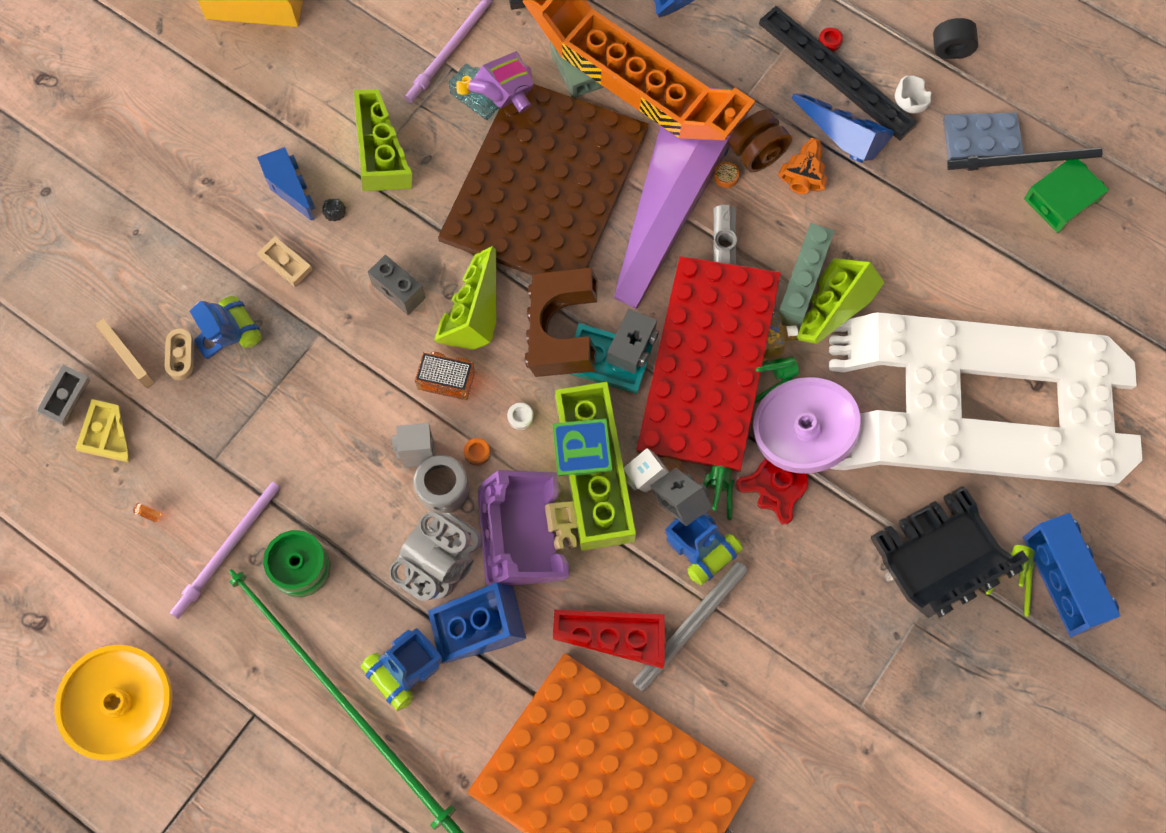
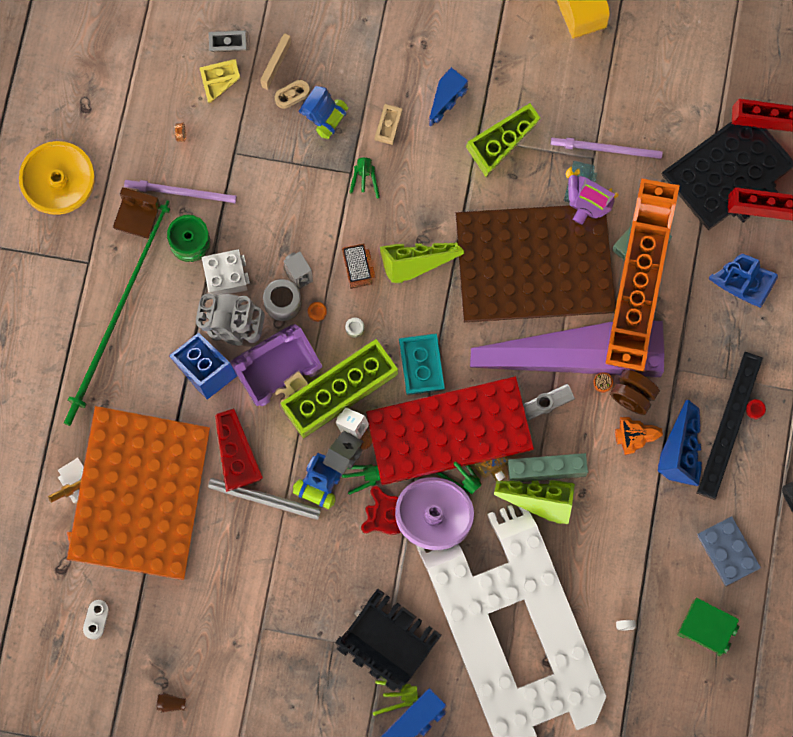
camera: 65 degrees right, 5 degrees up
(223, 617) = (136, 213): none -> reddish brown bracket
(326, 312) = (364, 168): none -> green plant
(333, 209) = (443, 135): black piece -> none
(369, 538) = (225, 273): none -> white brick
(396, 284) = (405, 203): dark grey brick -> none
(401, 667) = (154, 333): blue piece -> none
(548, 295) = (444, 303): reddish brown arch -> none
(582, 447) = (341, 372): piece -> none
(633, 327) = (426, 373): dark grey brick -> none
(912, 95) = (734, 485): white hair -> none
(973, 162) = (701, 552): black bar -> none
(1030, 277) = (626, 625): none -> white tile

